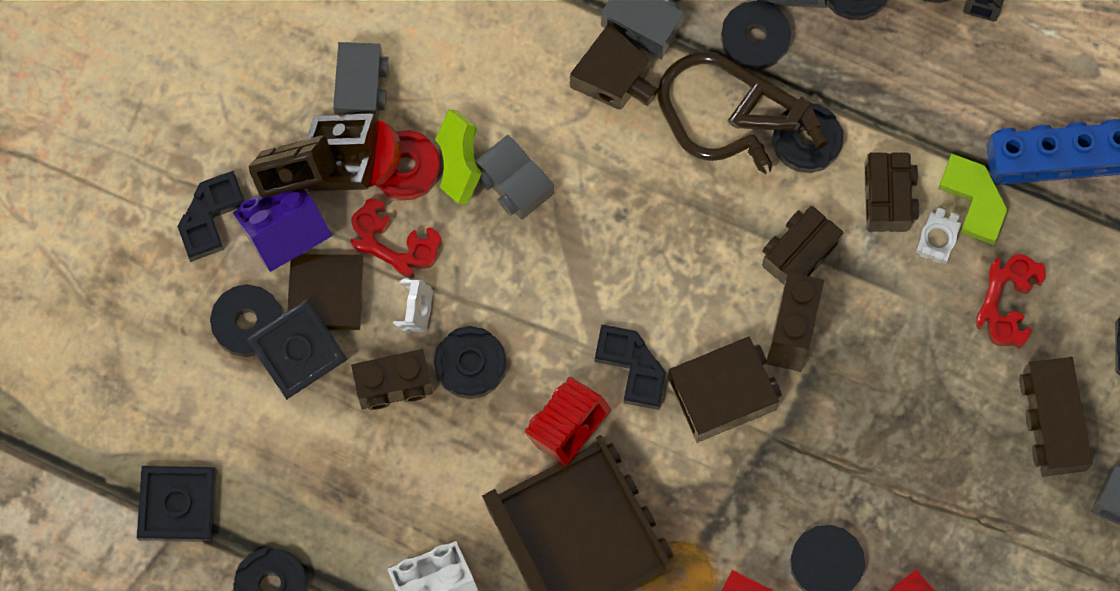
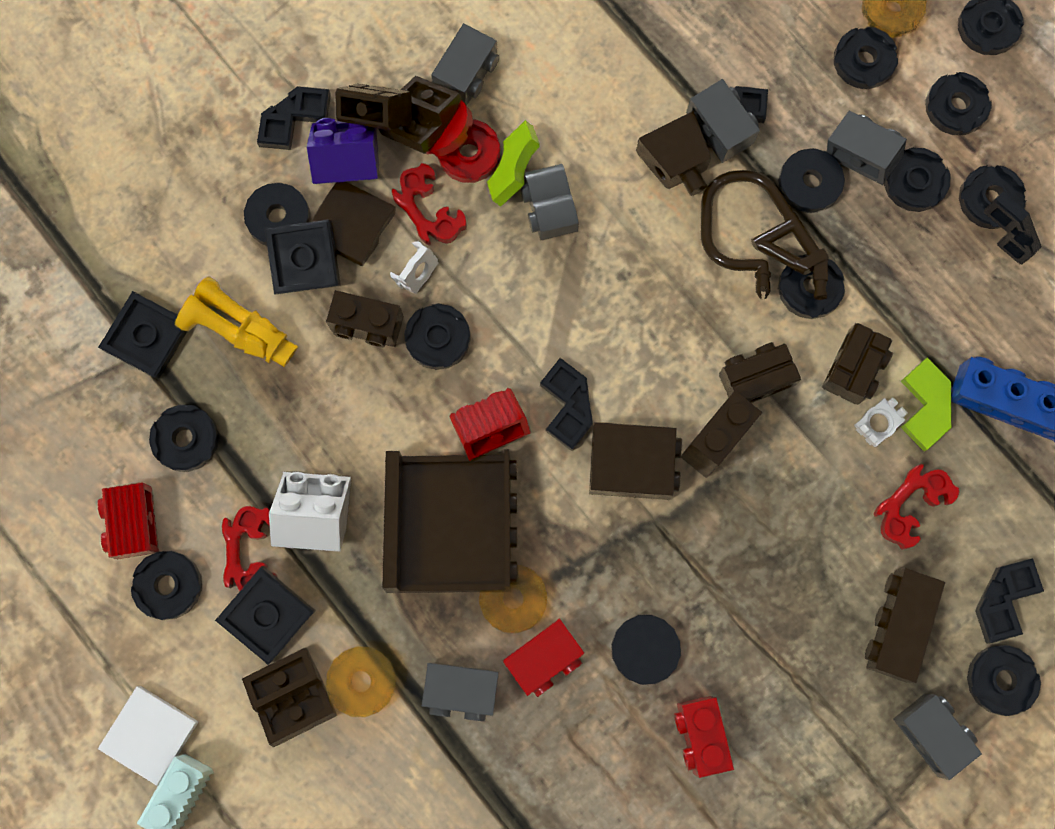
camera: 25 degrees right, 5 degrees up
(291, 448) = (254, 336): none -> yellow piece

